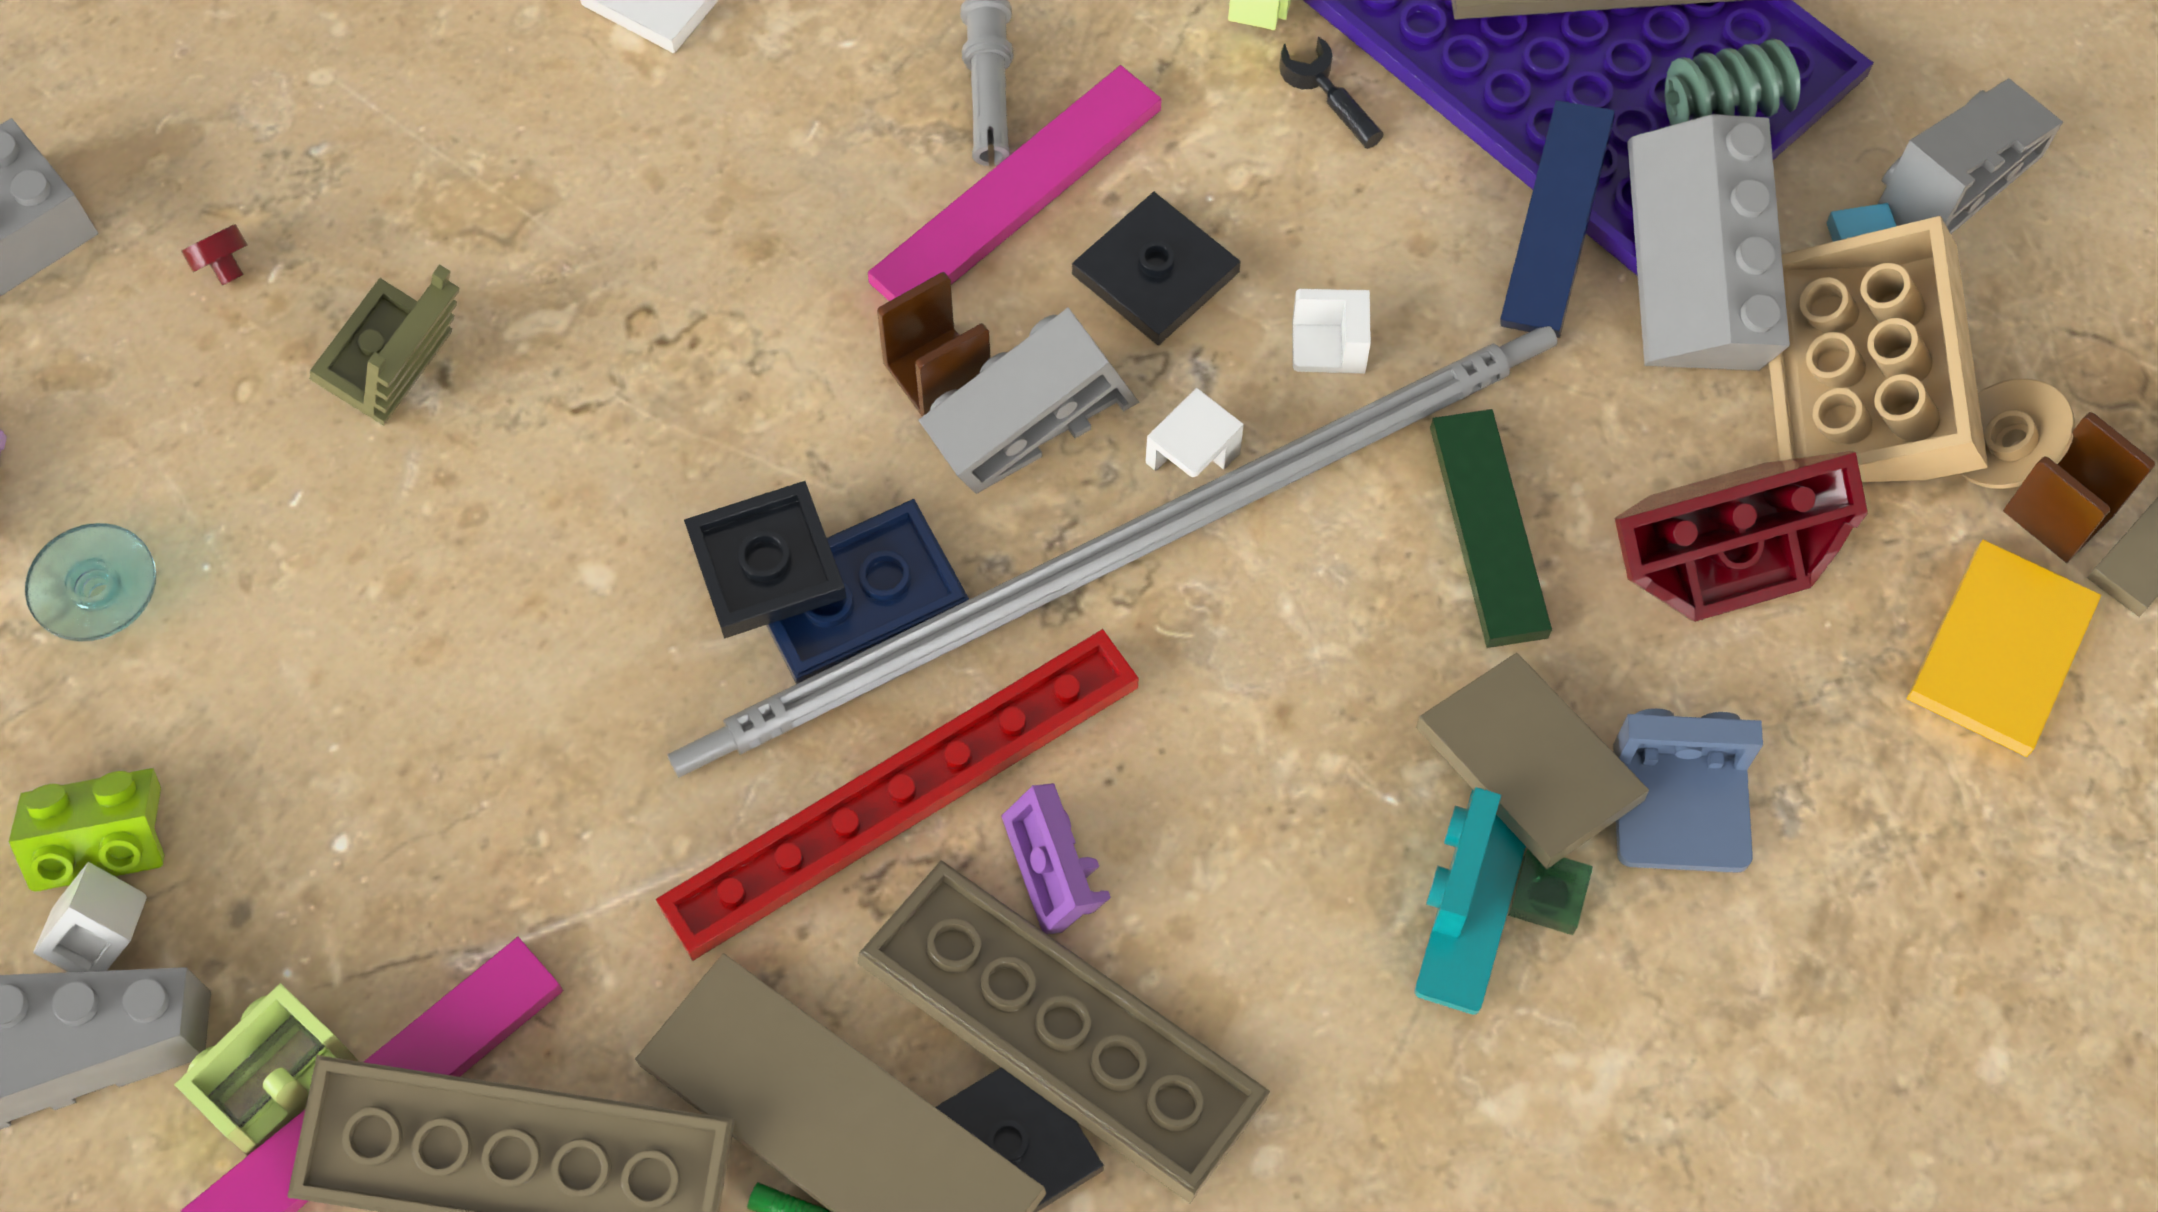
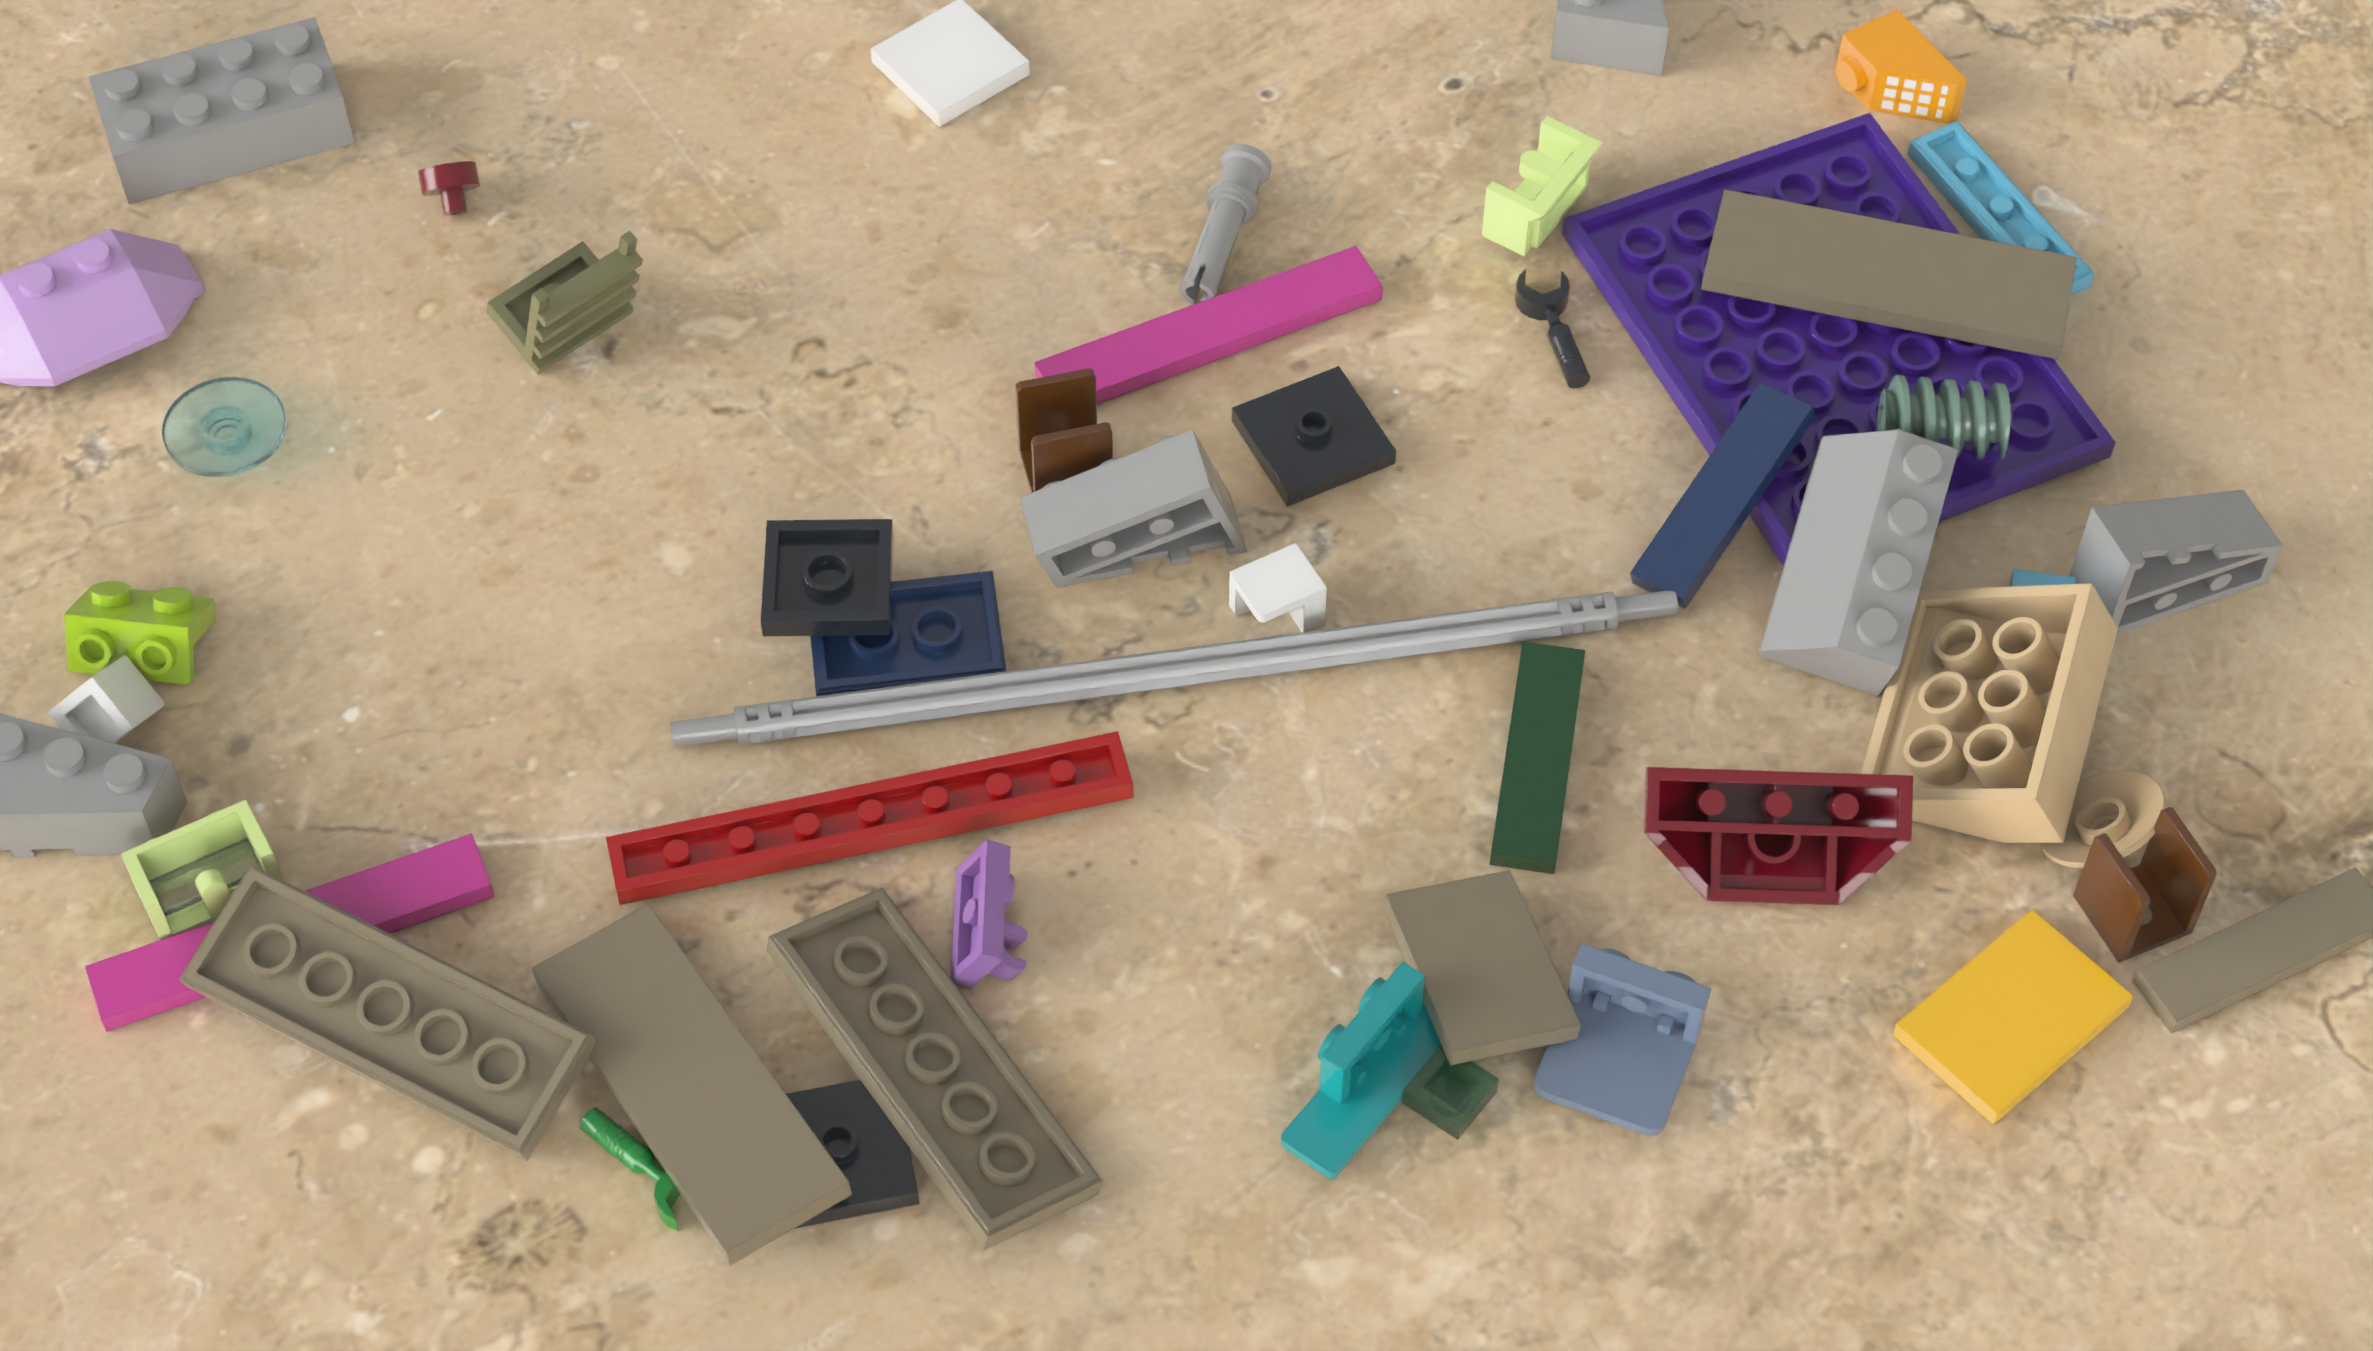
camera: 20 degrees right, 10 degrees down
(1331, 330) = (1457, 536): white panel -> none

